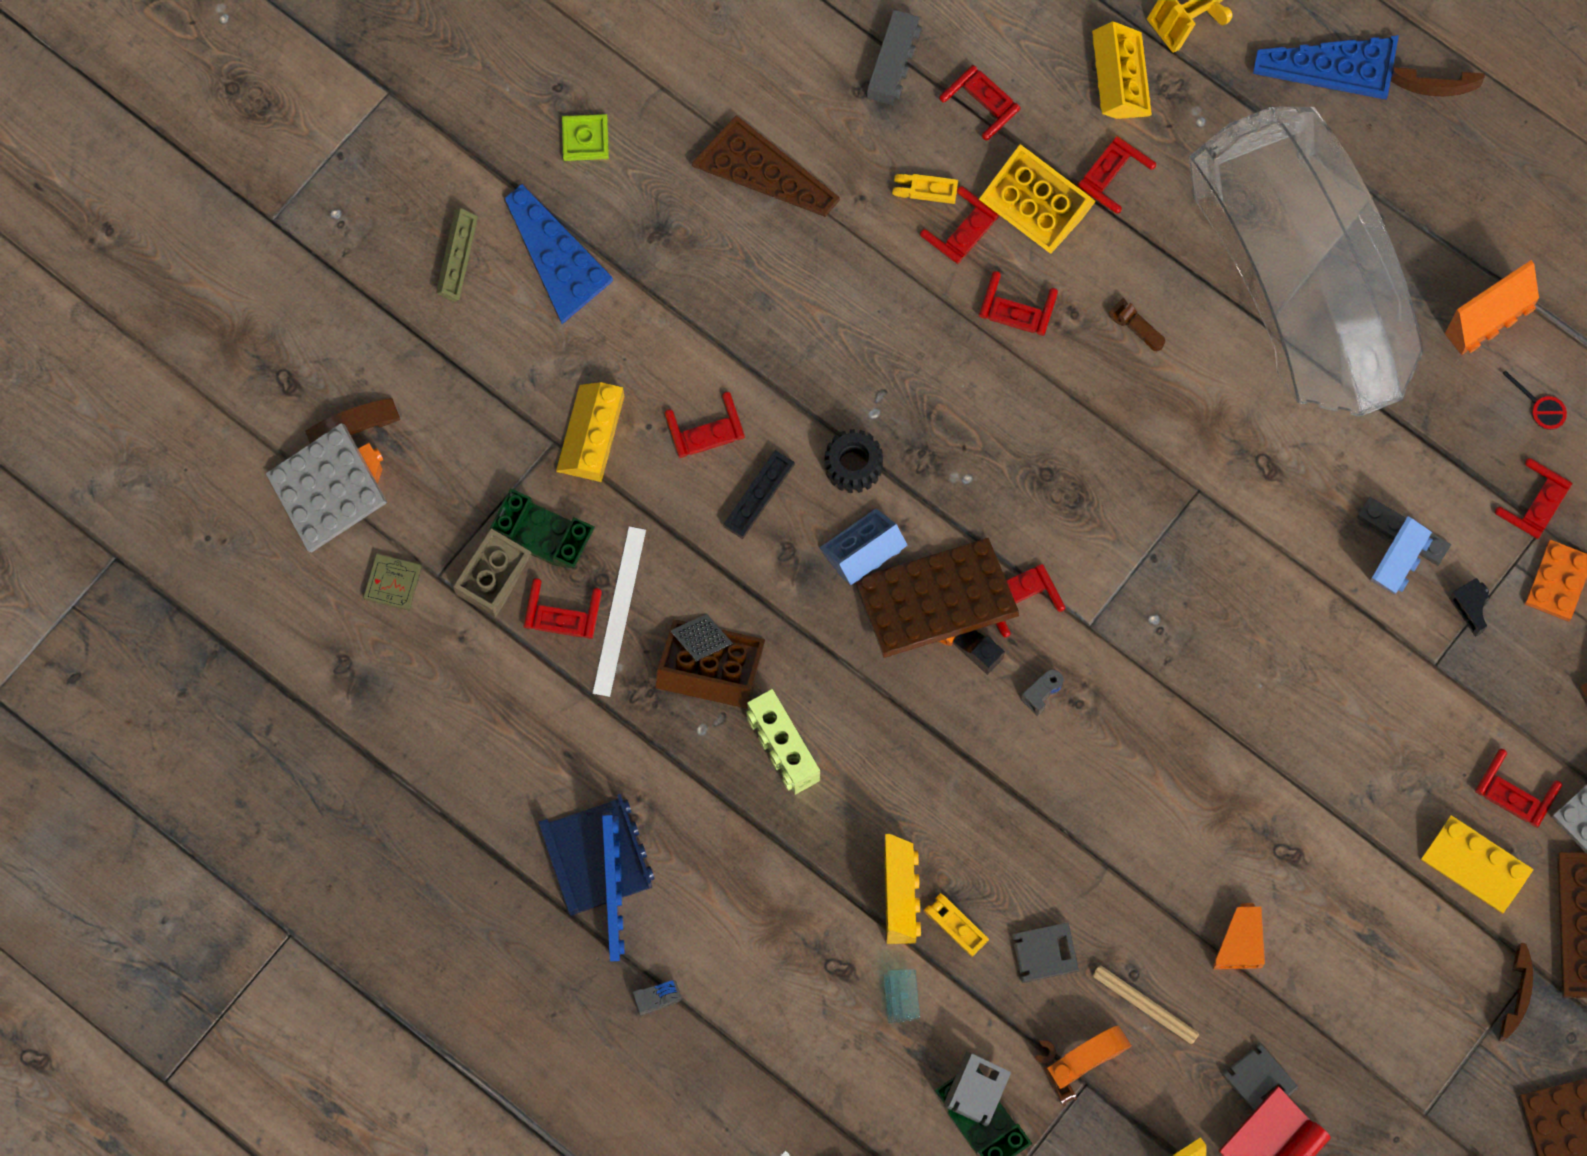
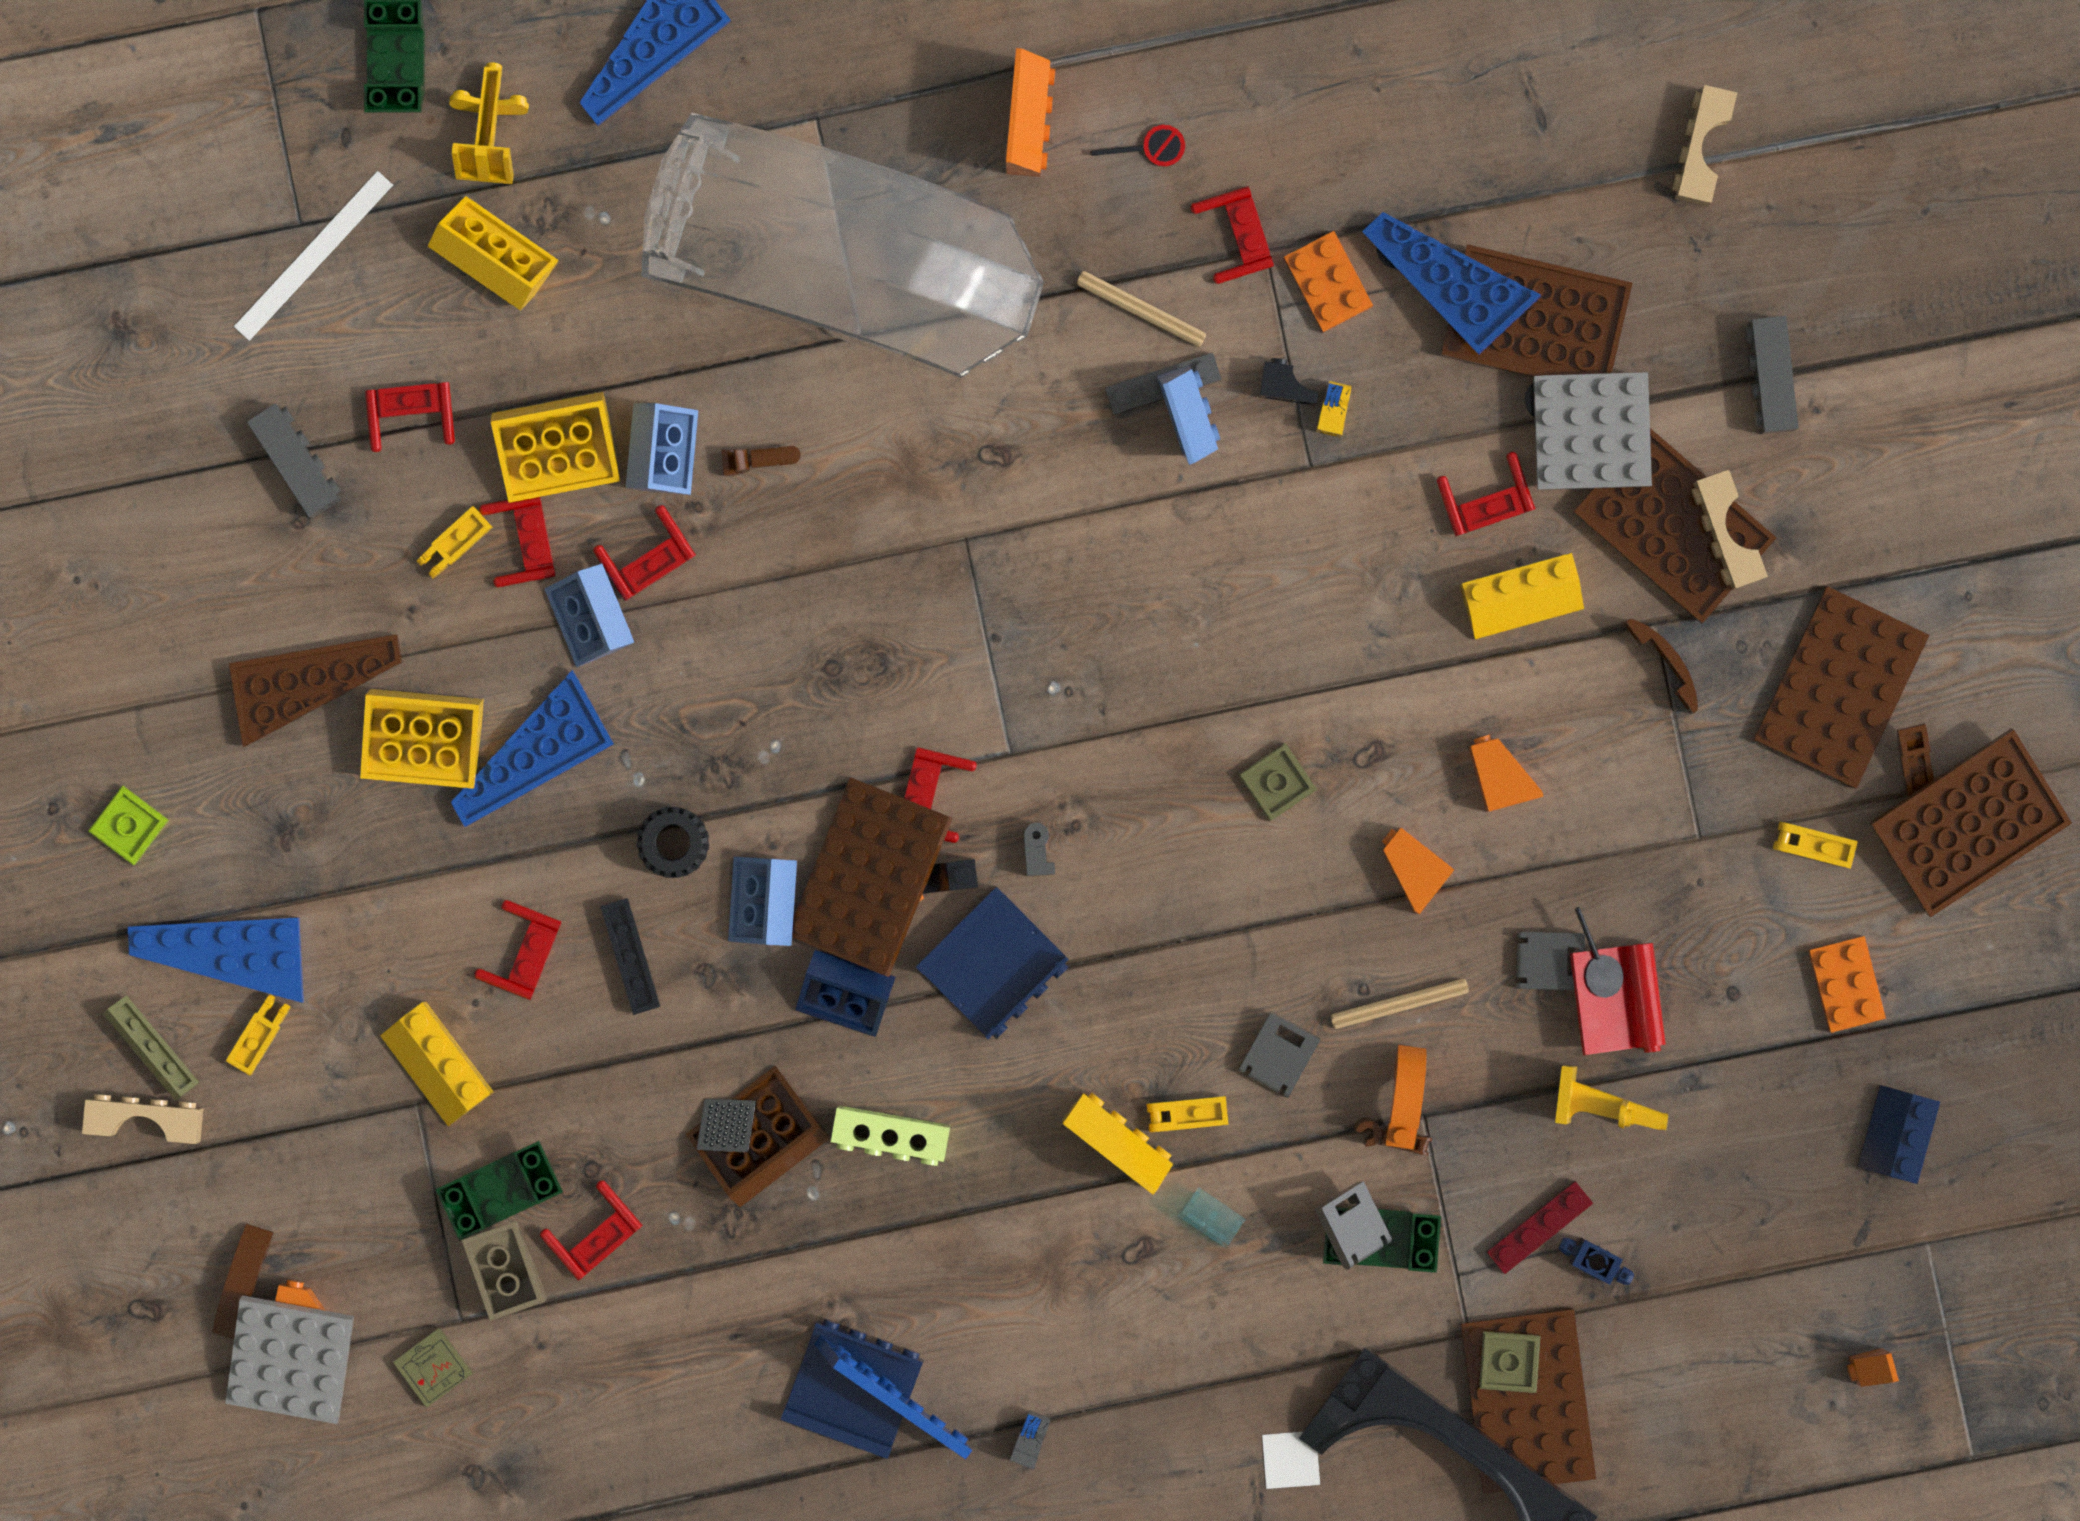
camera: 50 degrees left, 15 degrees up
(392, 263) = (179, 1122): none -> tan arch
(517, 312) = (257, 1037): none -> yellow hinge
(619, 611) = (635, 1177): white sticker -> none
(788, 260) = (421, 738): none -> yellow slope
(846, 339) = (548, 743): none -> blue wing
(848, 643) = (844, 993): none -> dark blue slope
(947, 721) = (993, 964): none -> dark blue panel
(951, 300) = (589, 615): none -> medium blue slope
(1092, 262) = (661, 448): none -> medium blue slope
(1107, 168) = (578, 350): red plate -> none
(1219, 808) = (1277, 782): none -> olive tile
(1282, 1120) = (1603, 972): none -> piece
(1350, 947) = (1500, 775): none -> orange slope
(1437, 480) = (1141, 309): none -> tan axle
(1484, 648) = (1334, 409): none -> yellow leg

